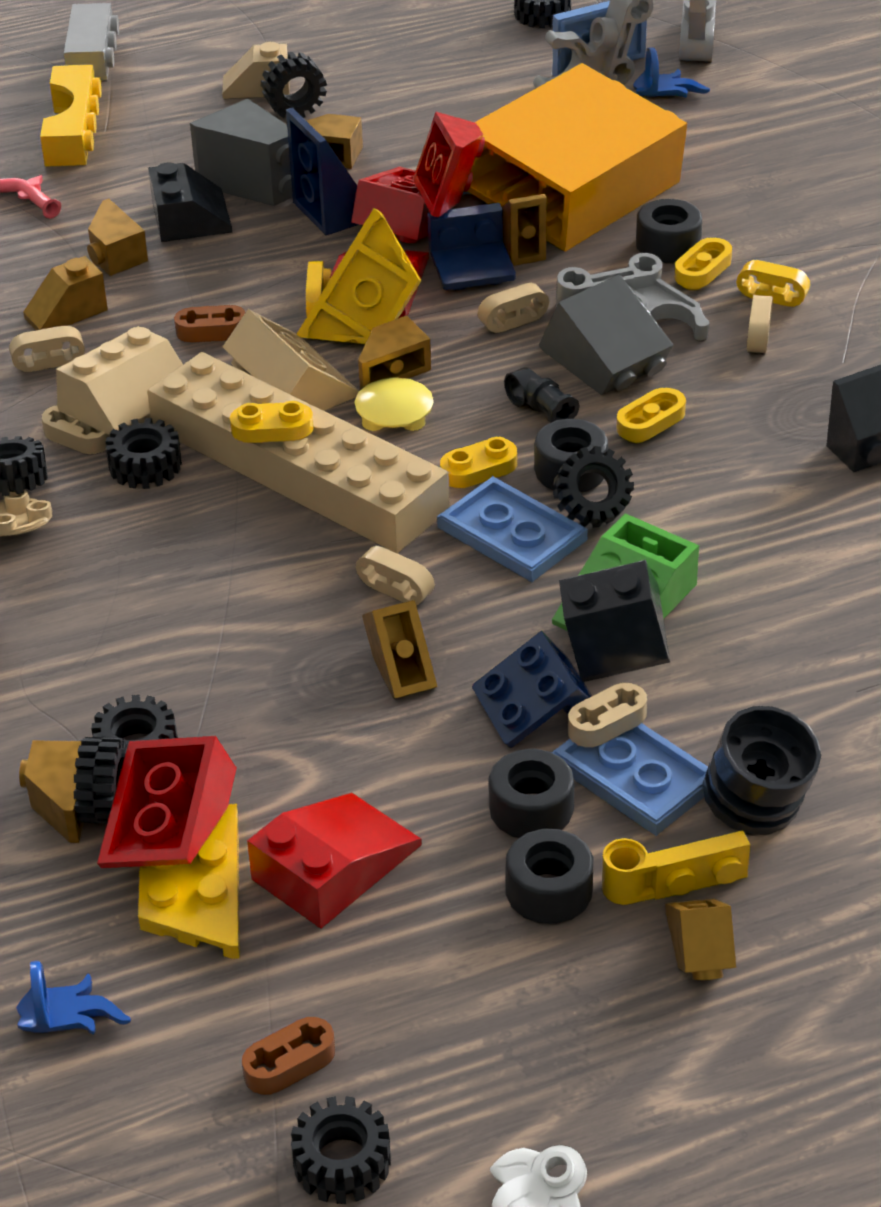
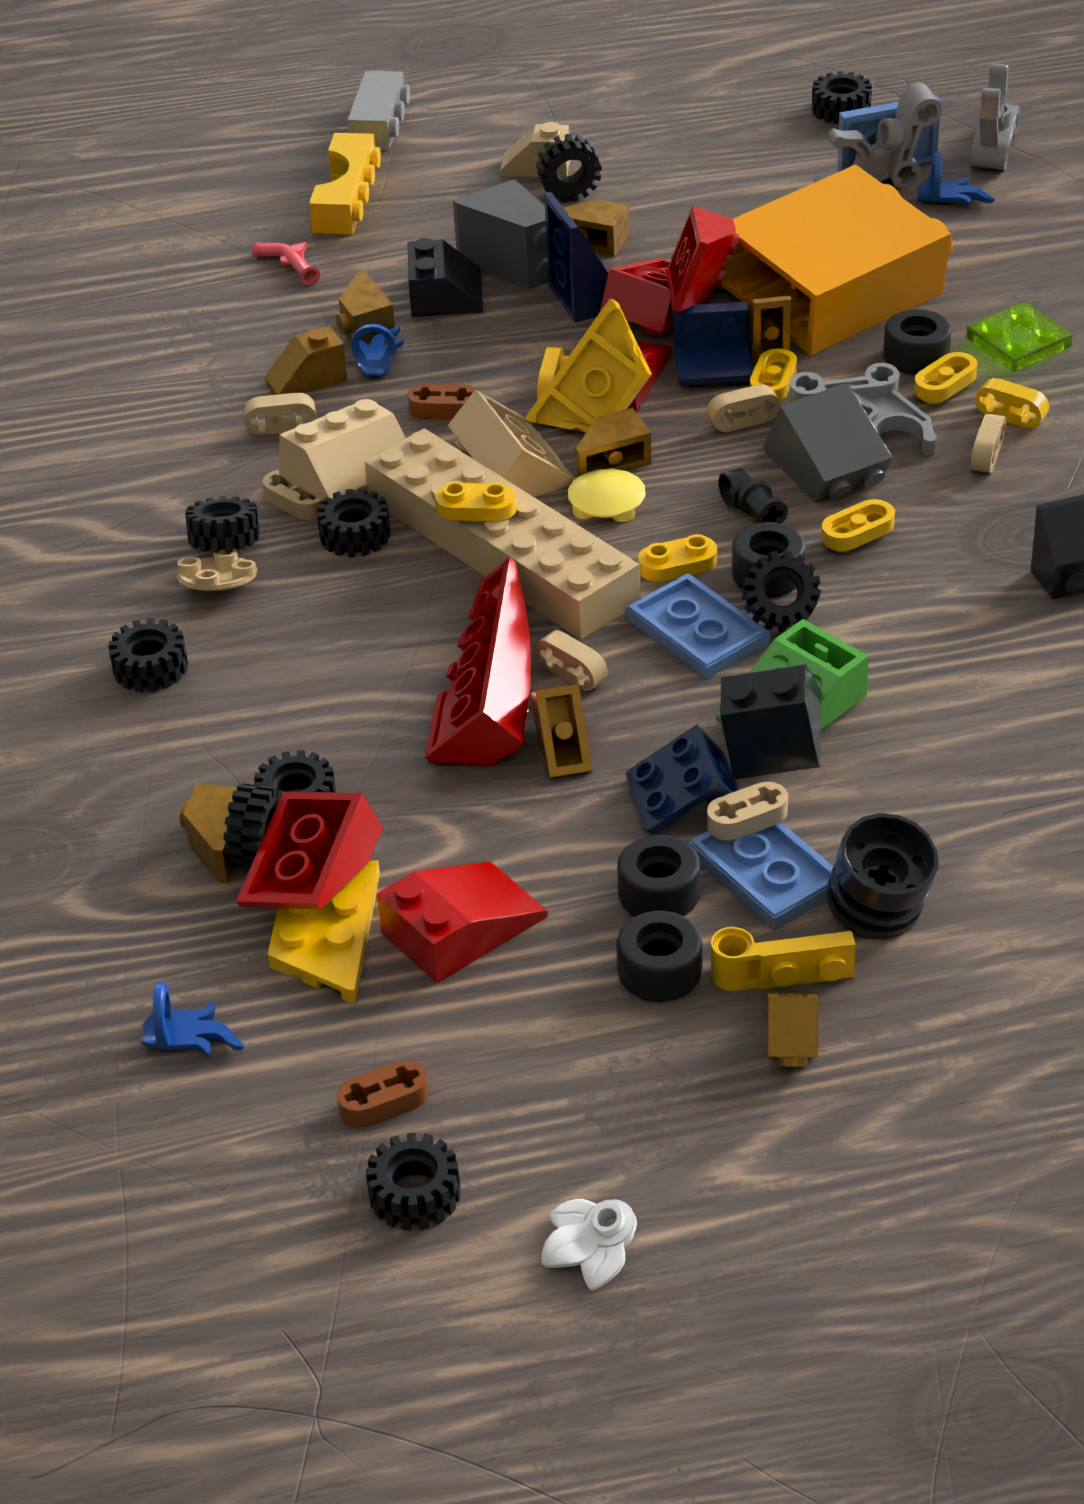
camera: 10 degrees right, 0 degrees up
(134, 285) = (376, 358): none -> blue piece
(316, 614) = (490, 683): none -> red wedge
(538, 267) = (775, 370): none -> yellow plate
(763, 218) = (1019, 336): none -> clear neon green plate

